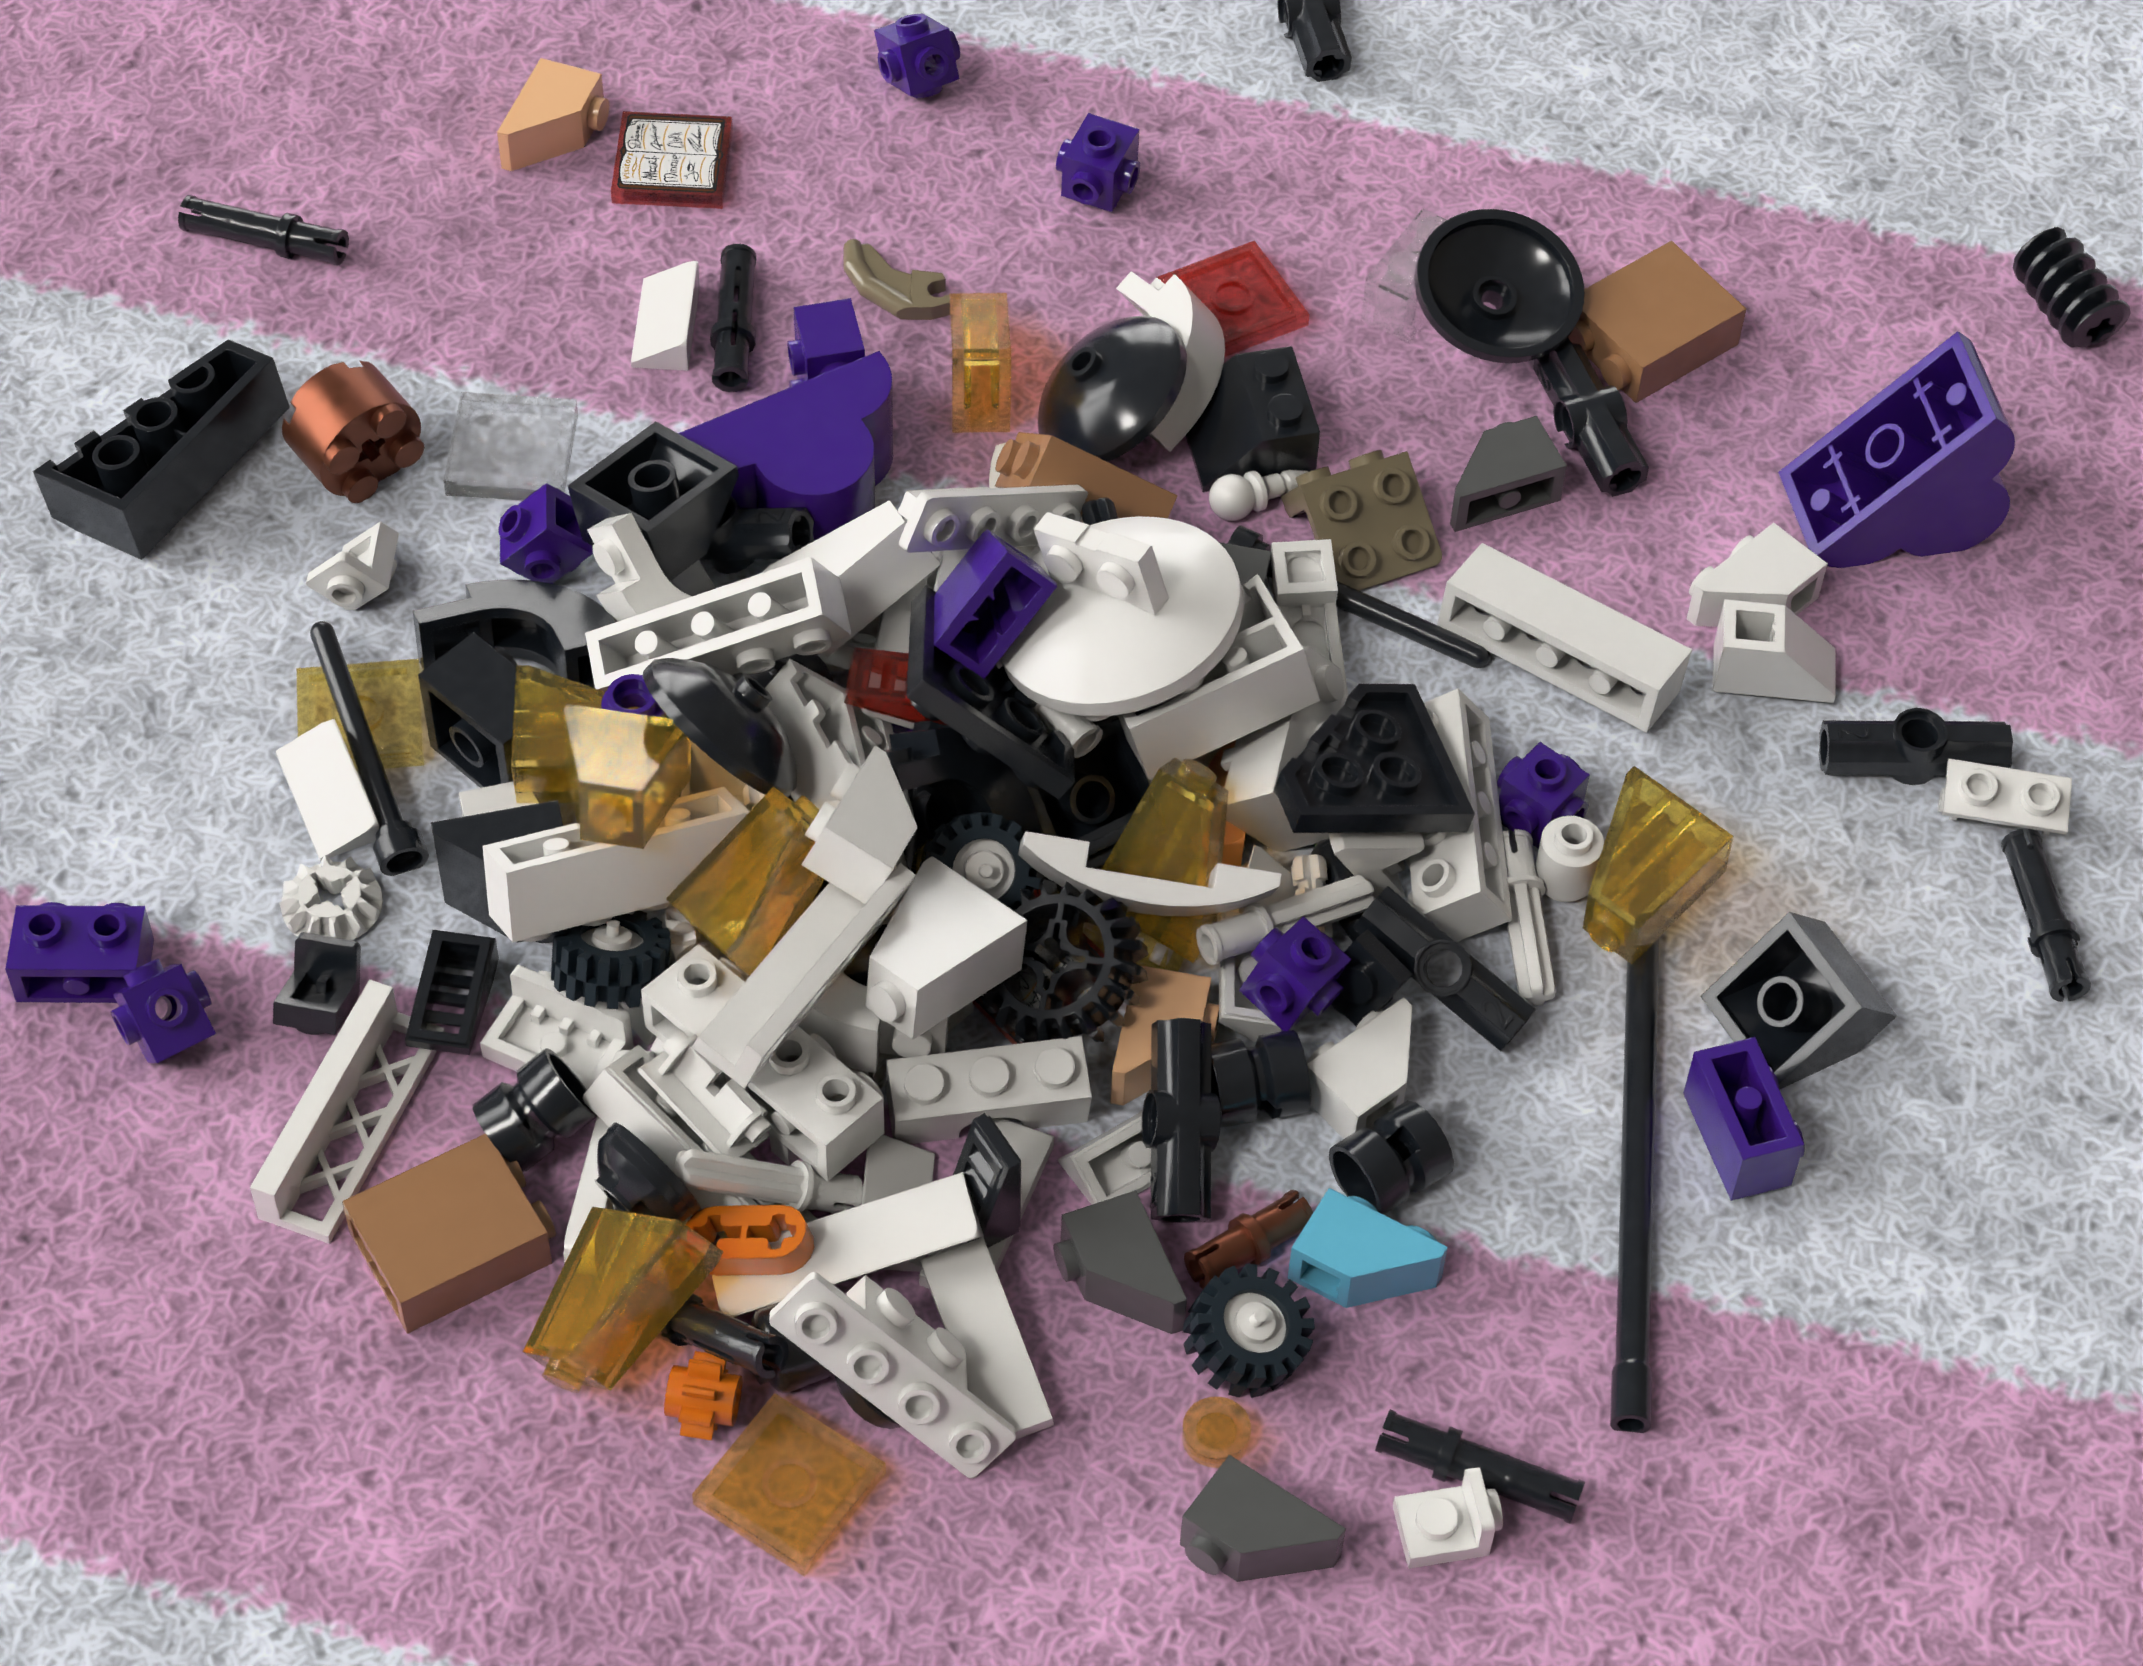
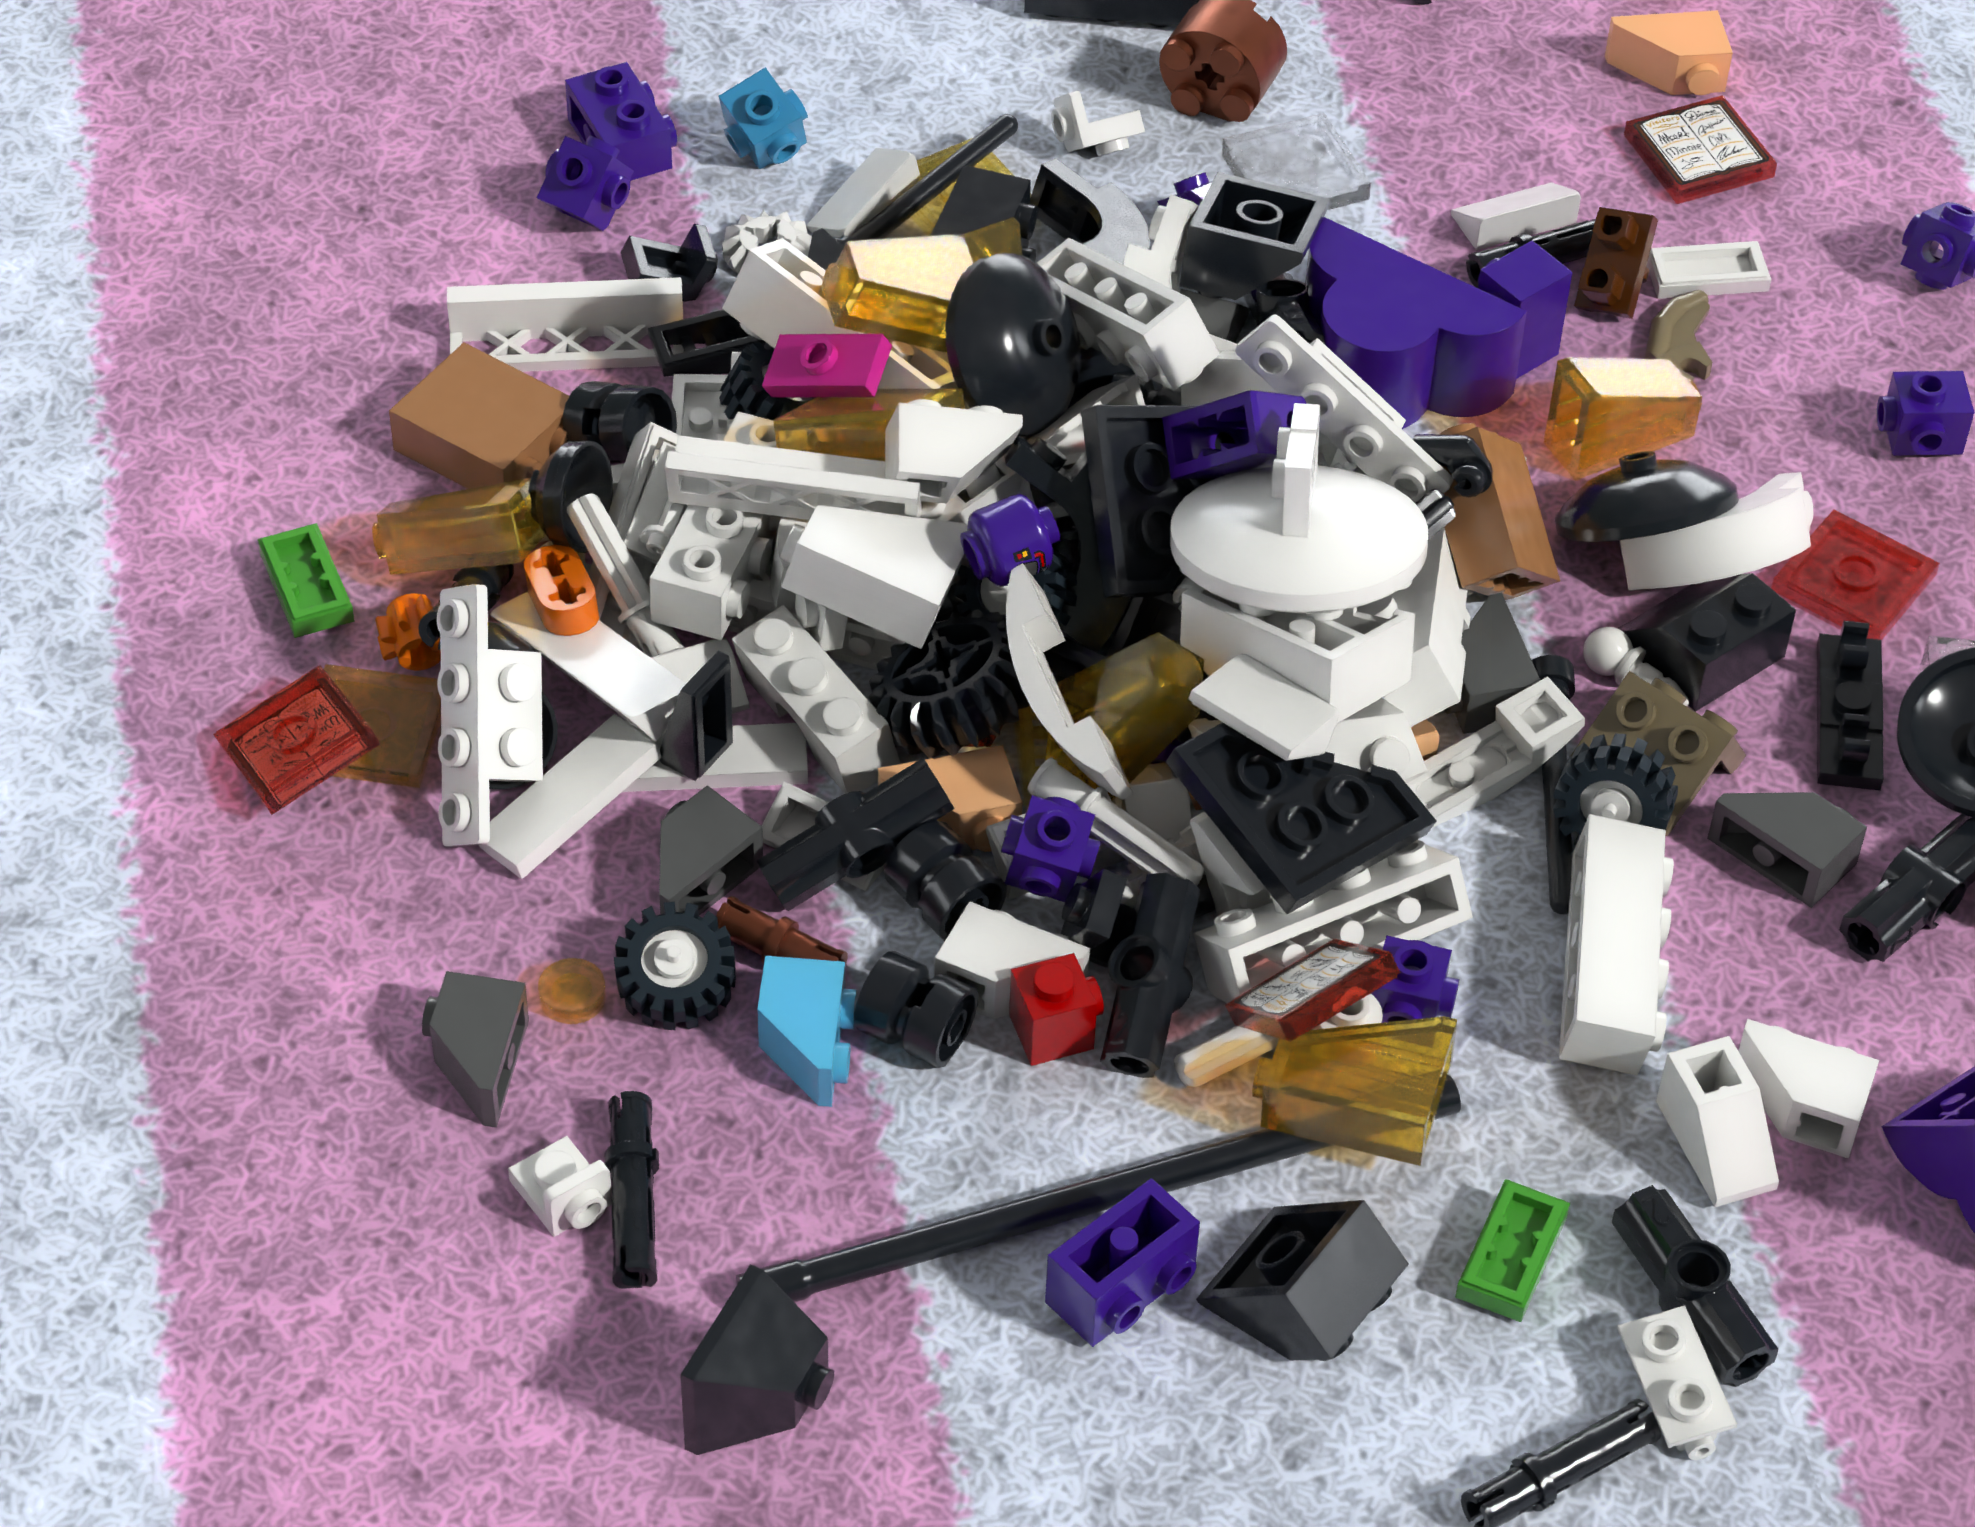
camera: 65 degrees right, 5 degrees down
(174, 826) = (763, 120): none -> dark azure brick
(562, 1472) = (305, 580): none -> bright green plate
(664, 883) = (827, 365): none -> dark pink plate
(791, 1552) = (296, 739): none -> clear red tile
(795, 268) = (1616, 262): none -> reddish brown hips
(822, 225) = (1709, 268): none -> white tile
(983, 831) = (1007, 536): none -> dark purple head
(1076, 466) = (1463, 460): none -> black arm
(1284, 730) = (1267, 708): none -> white slope
(1376, 374) = (1850, 708): none -> black plate
(1418, 558) = (1614, 784): none -> black wheel
(1441, 1057) = (1054, 1008): none -> red brick
(1554, 850) = (1313, 989): none -> tile
(1739, 1440) = (753, 1369): none -> black slope
(1825, 850) = (1512, 1250): none -> bright green plate

